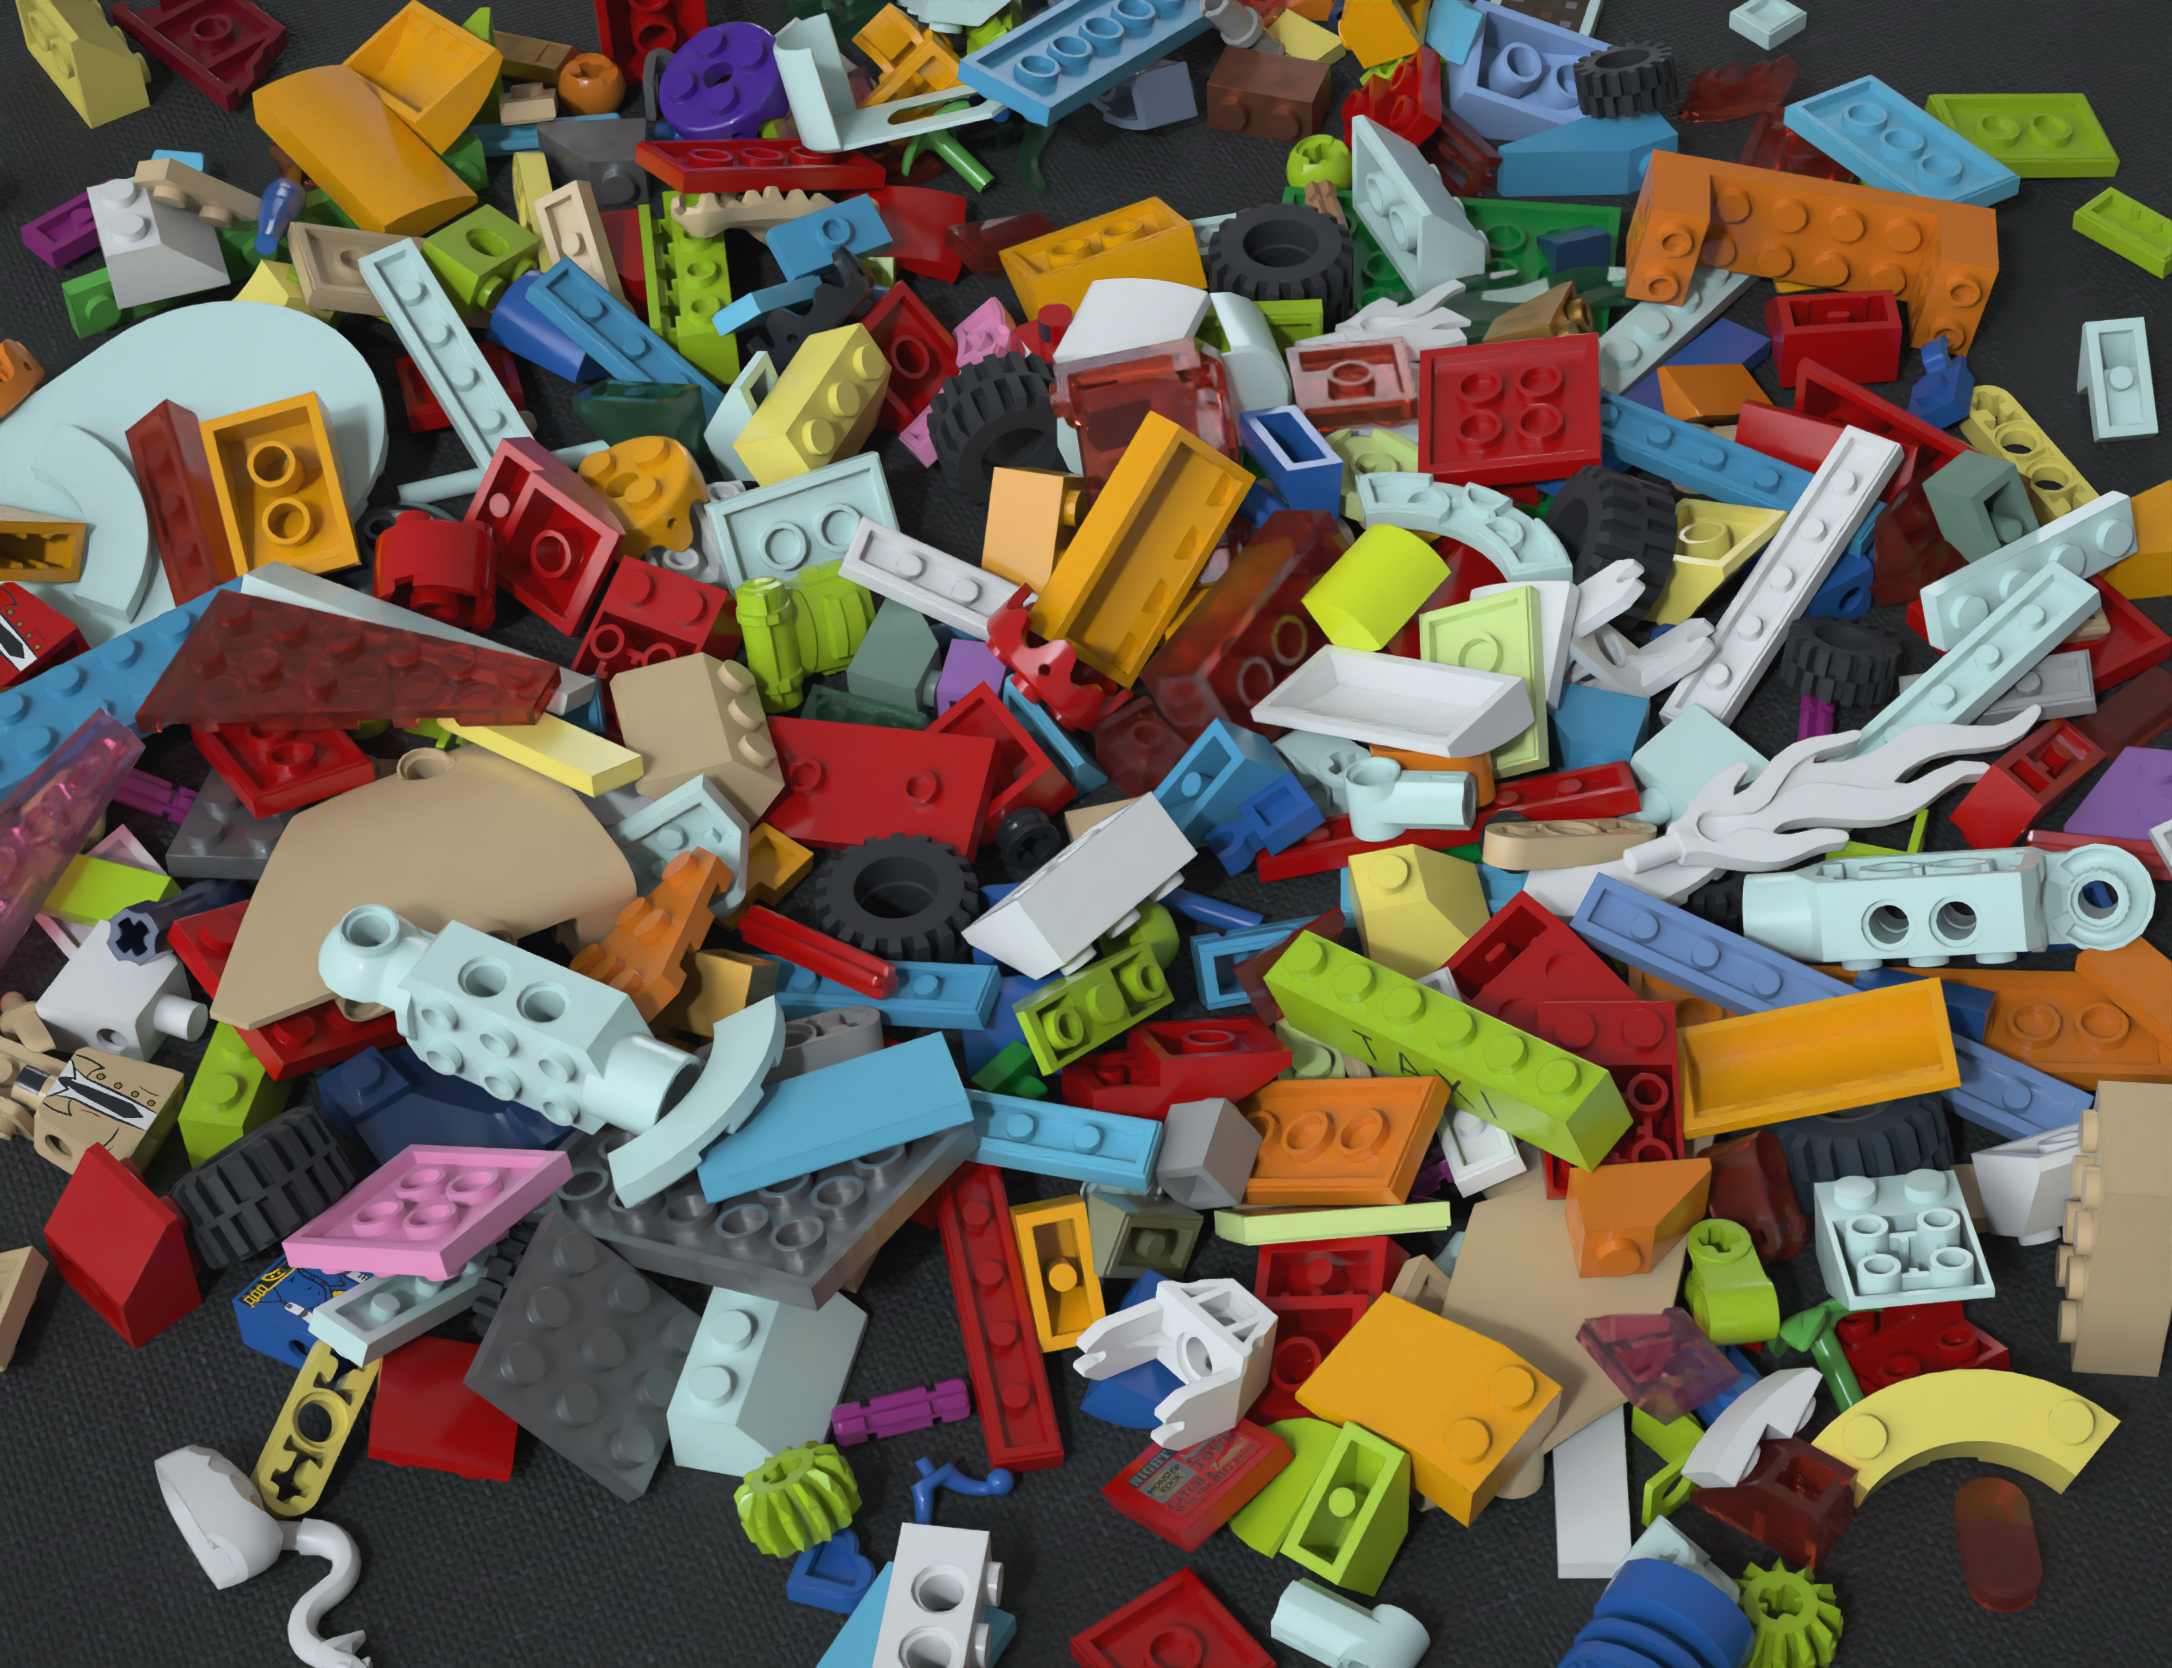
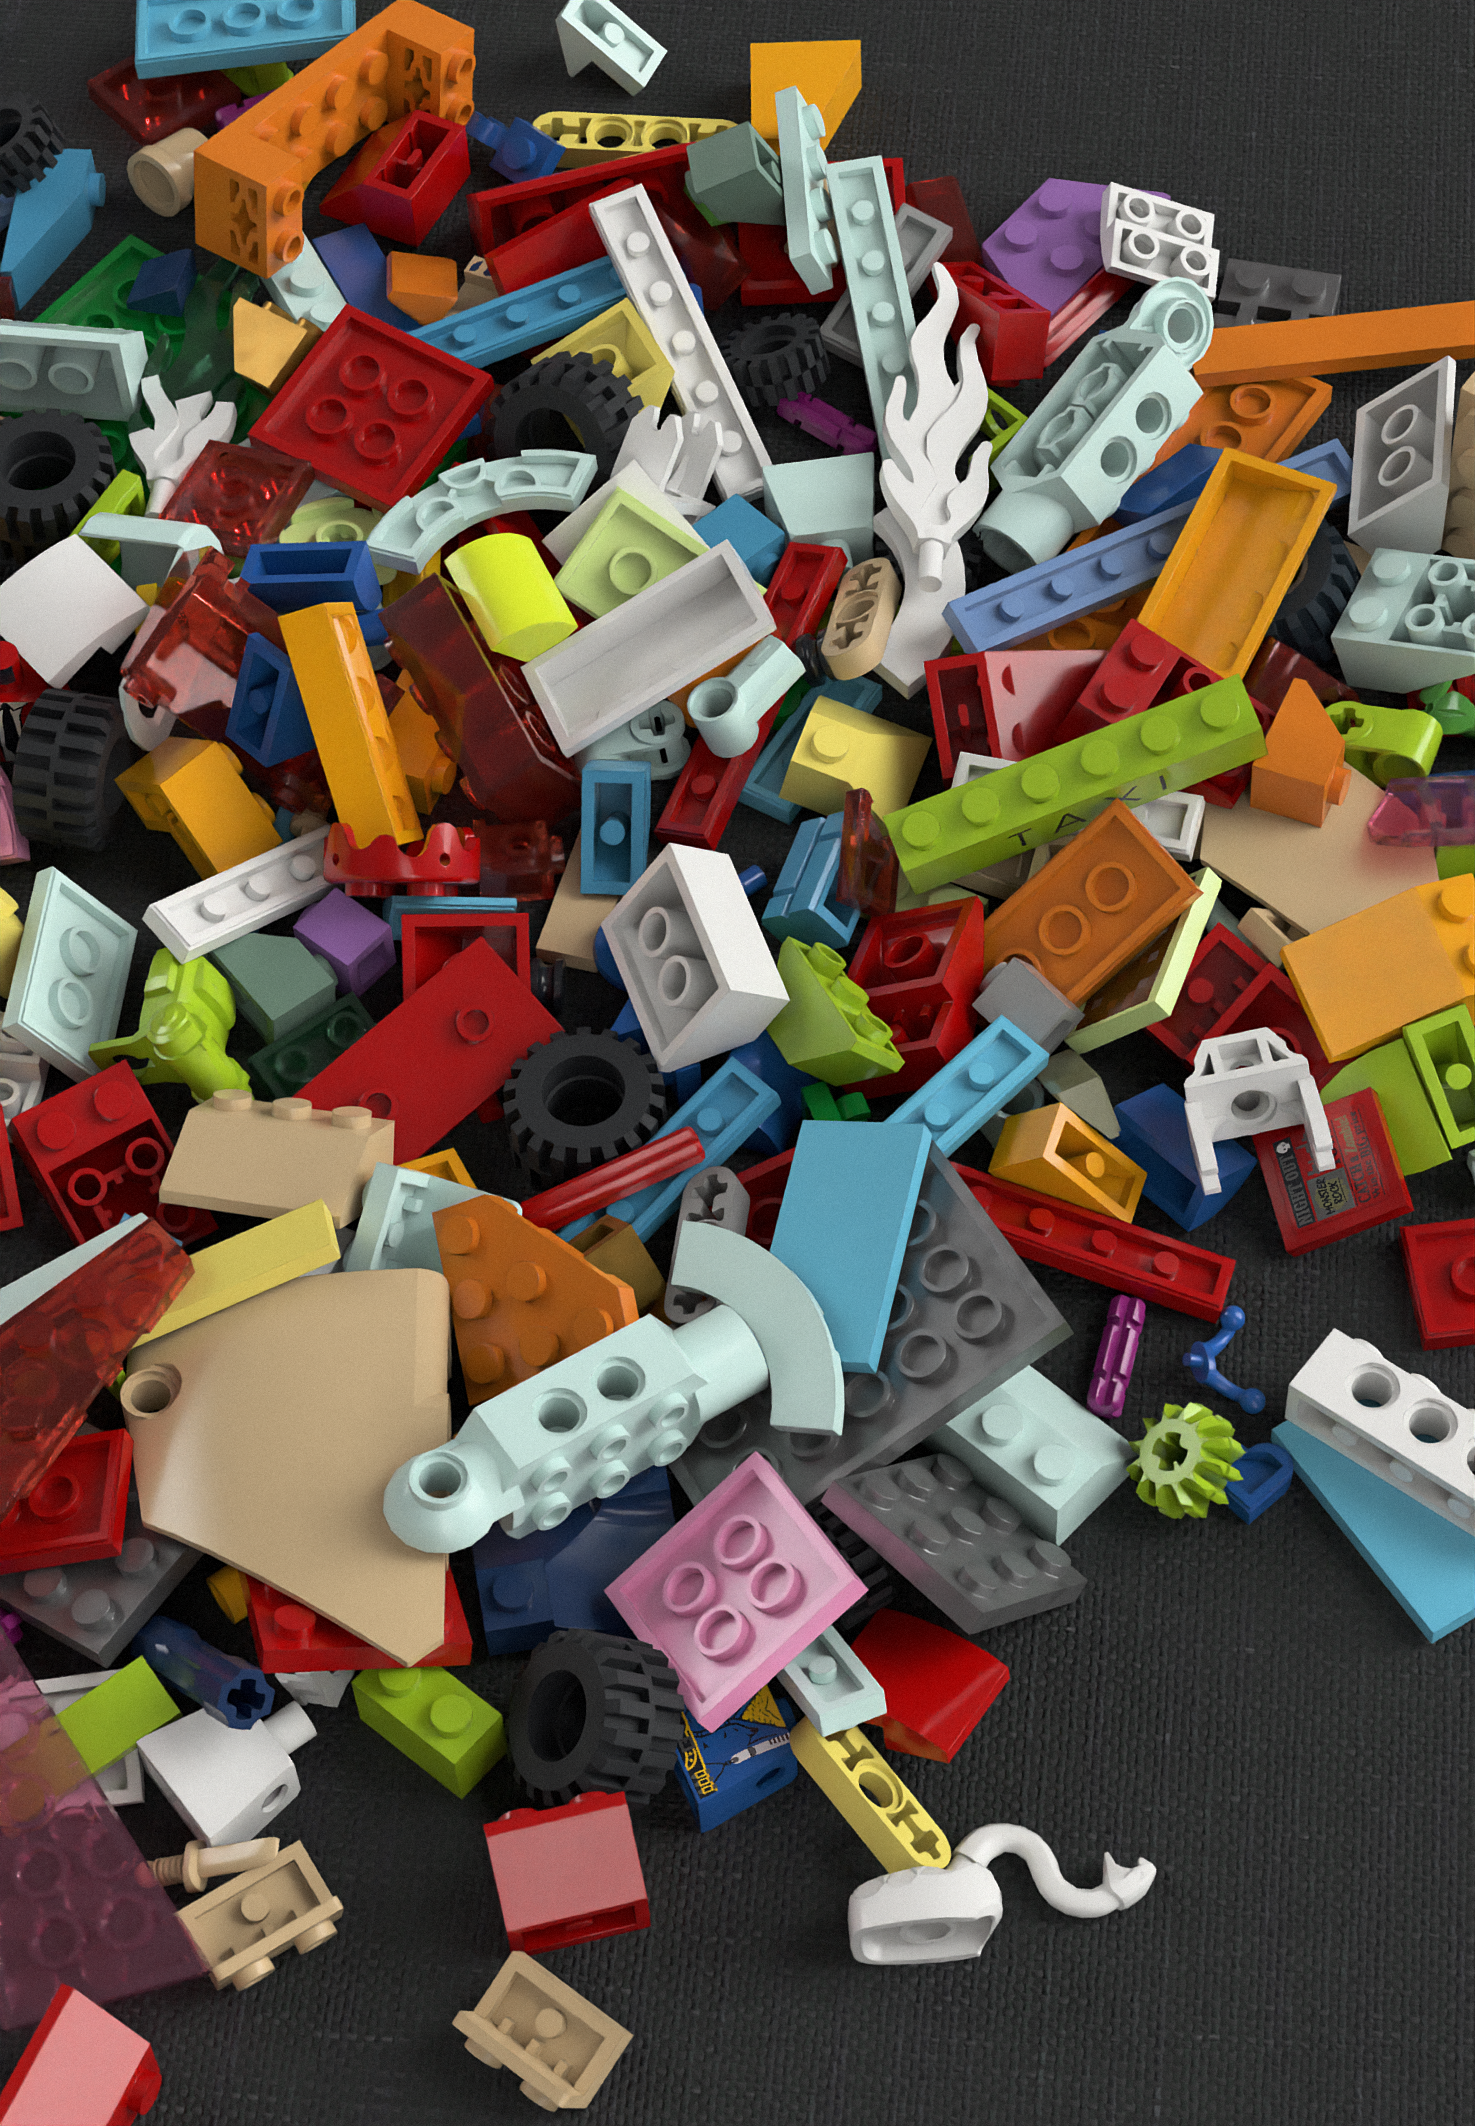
camera: 60 degrees left, 10 degrees up
(101, 1100) = (380, 1839): tan torso -> none
(1270, 820) = (680, 798): blue plate -> none
(1737, 93) = (68, 78): clear red slope -> none

